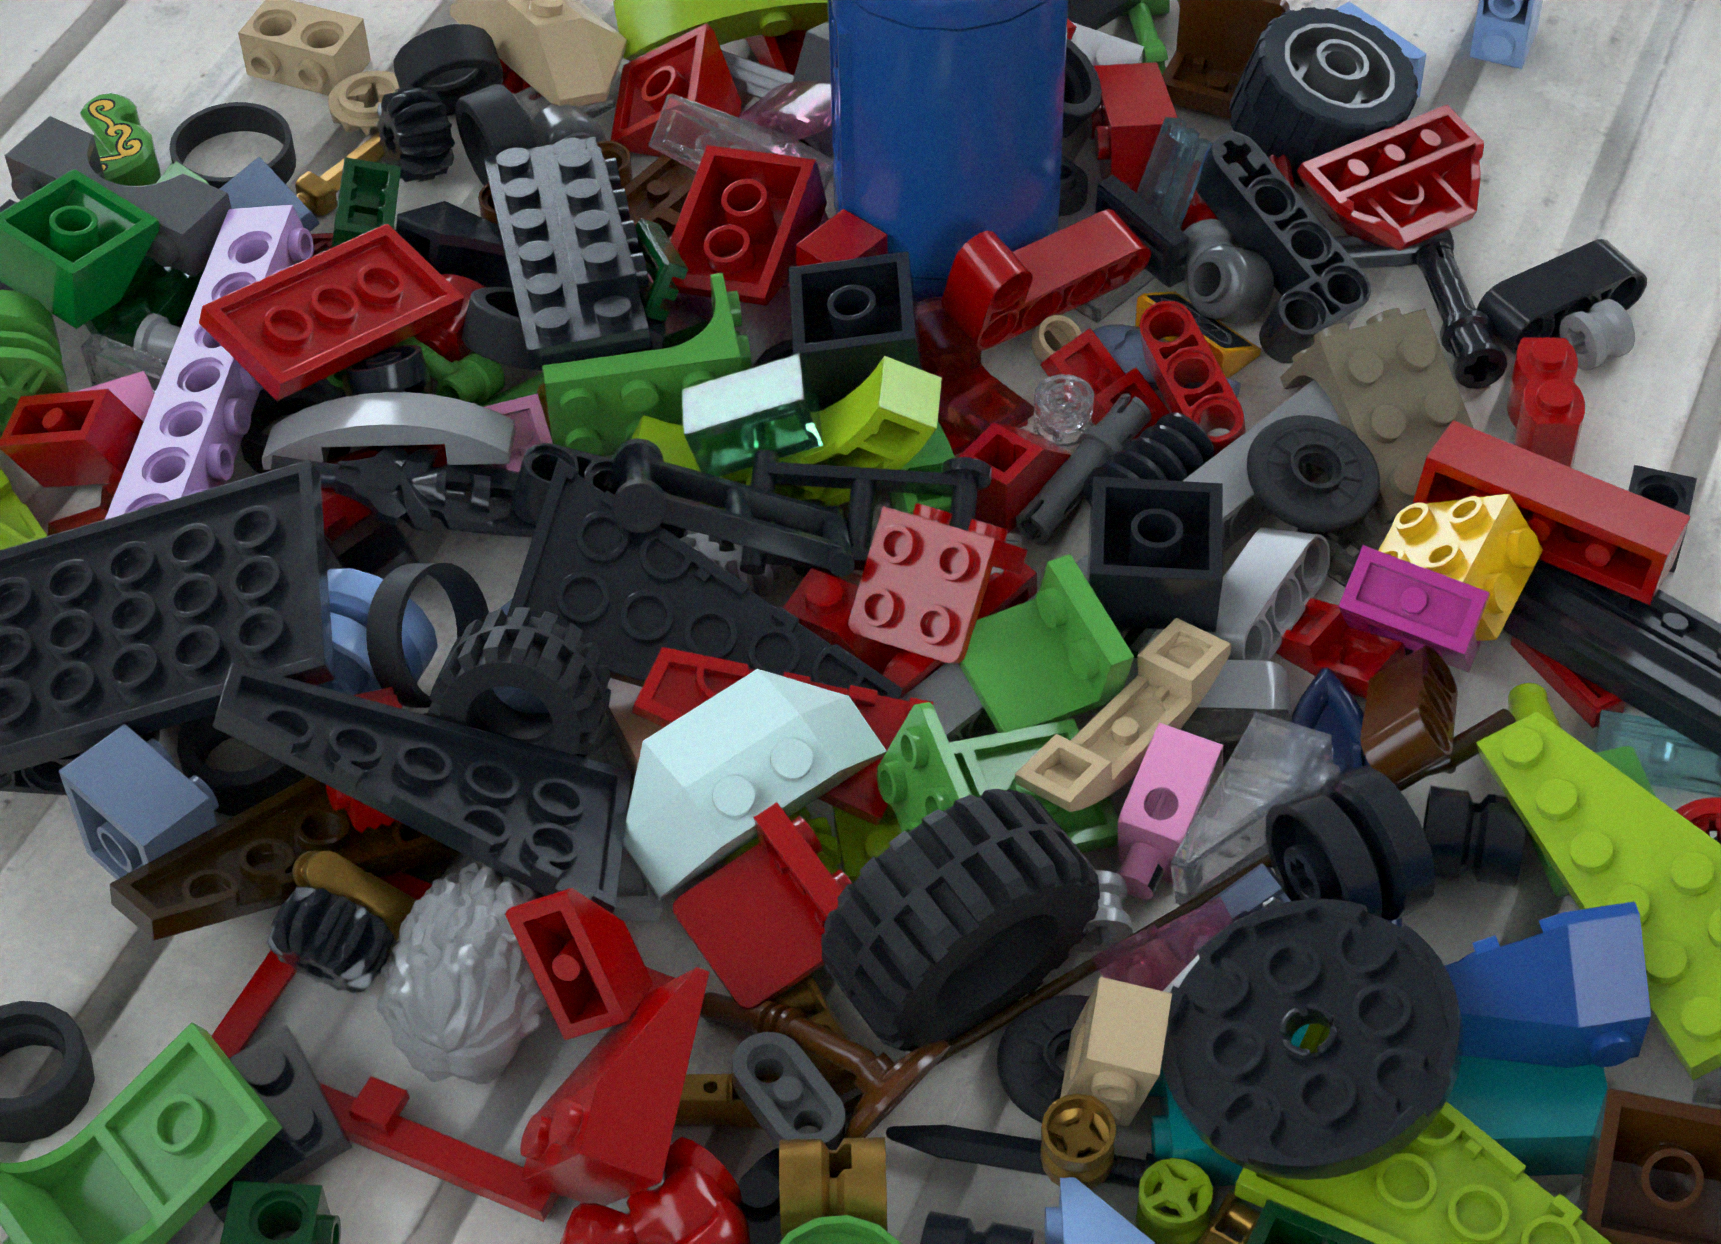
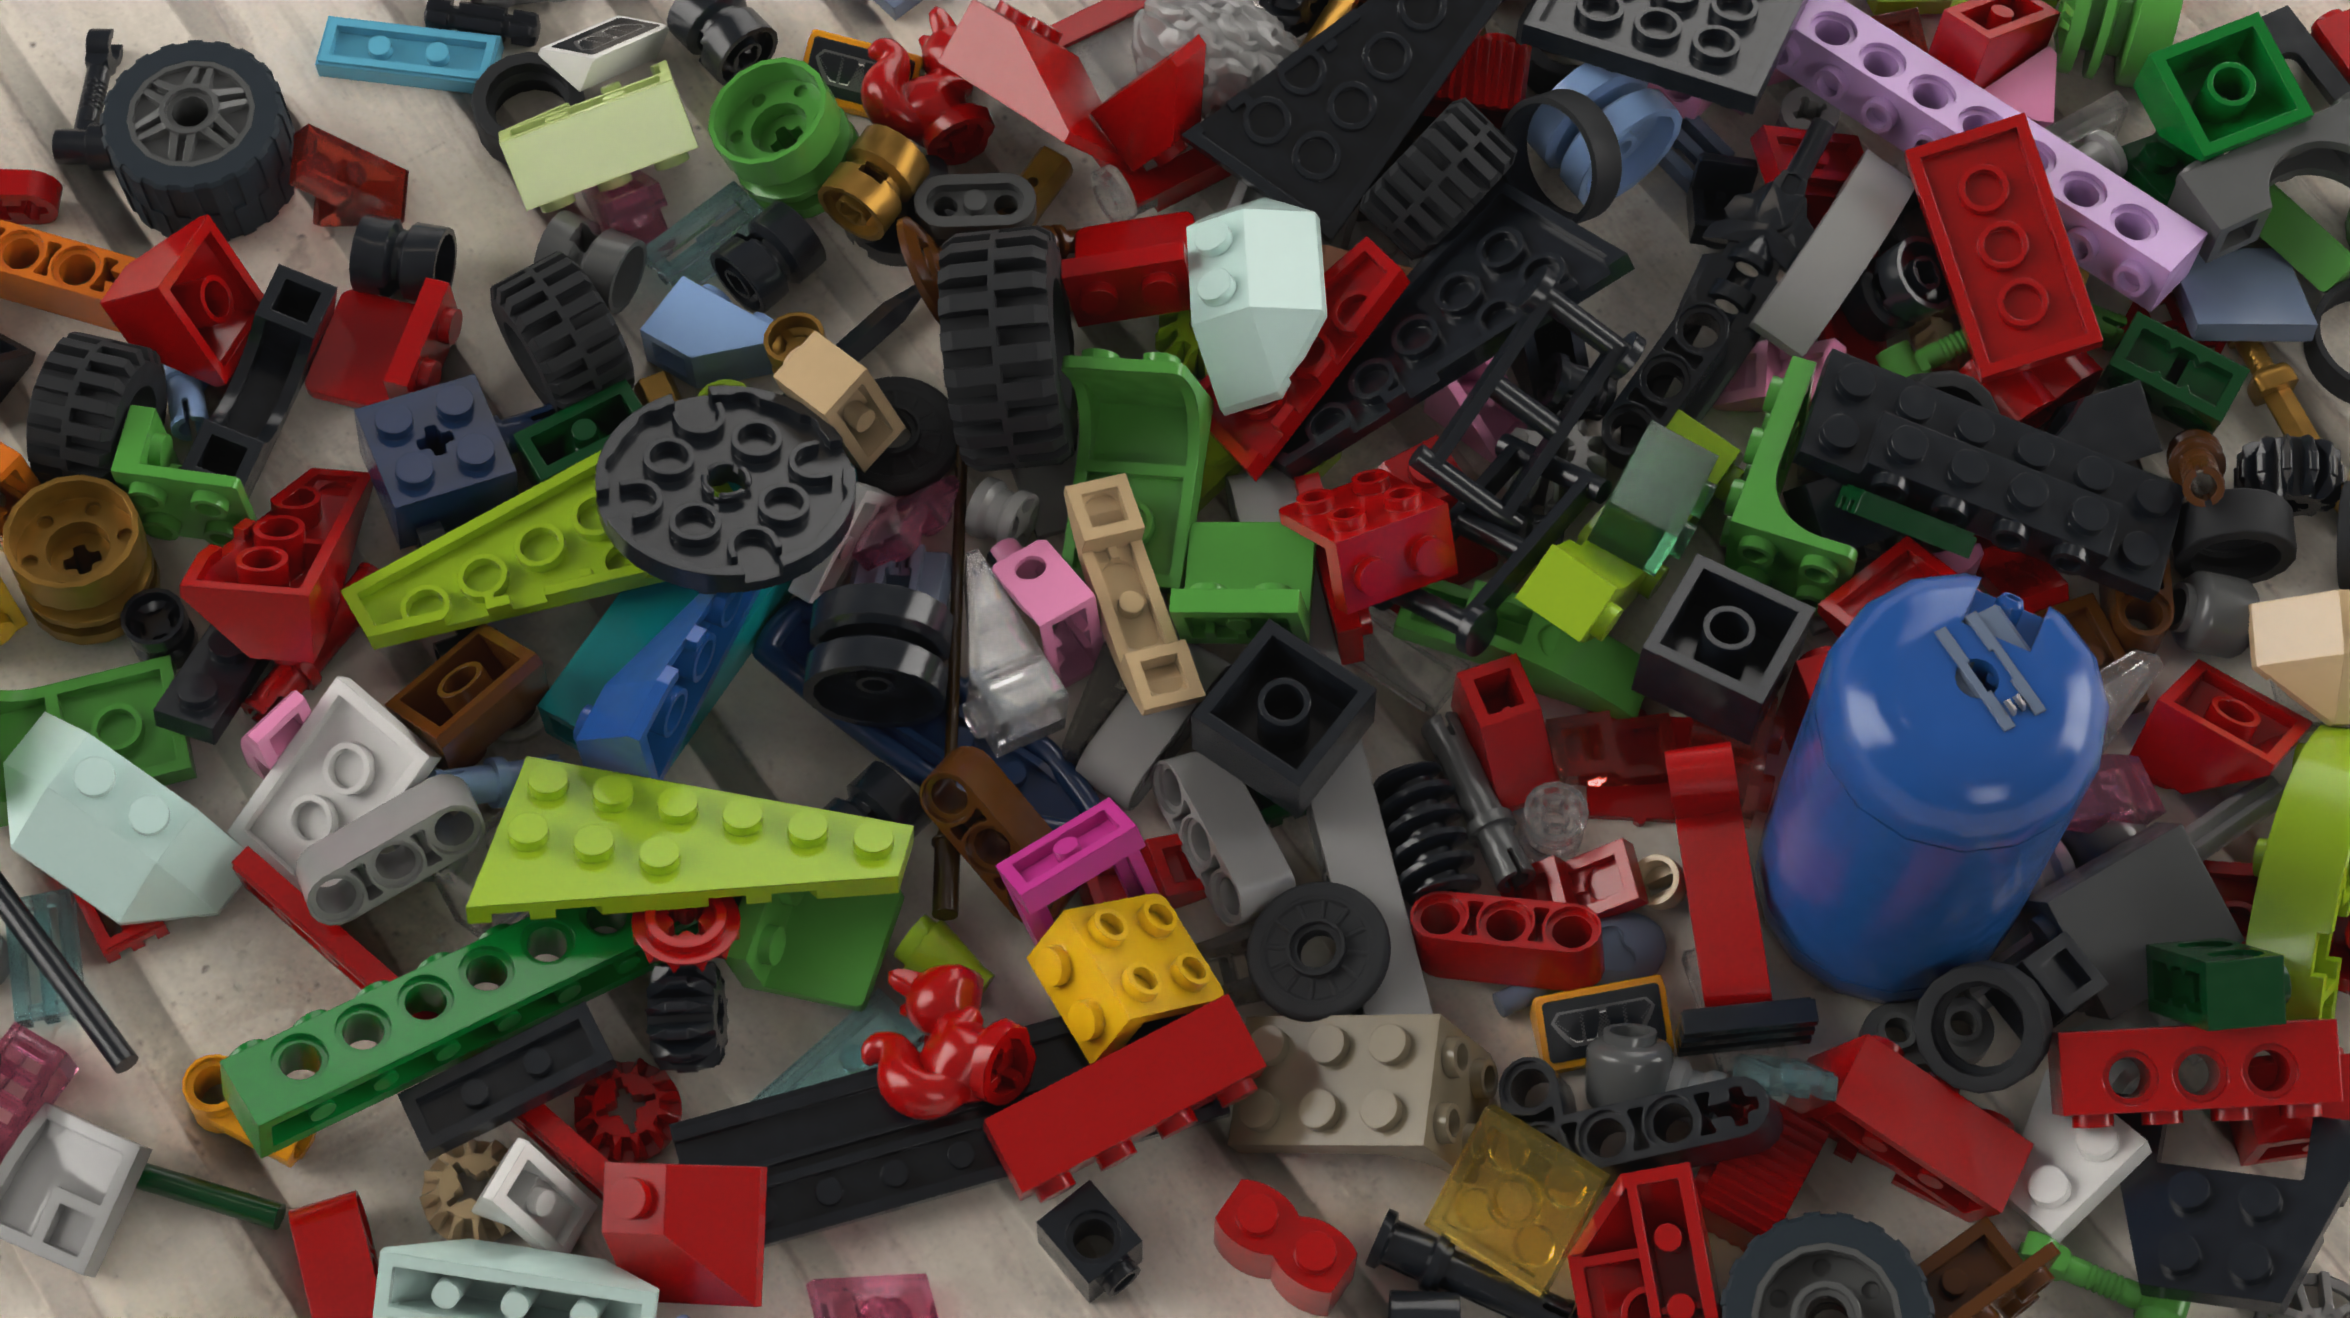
camera: 120 degrees right, 15 degrees up
(448, 172) = (2194, 451): none -> reddish brown pin
(1394, 269) = (1516, 1200): none -> clear yellow plate
(1624, 617) = (960, 1058): none -> red animal

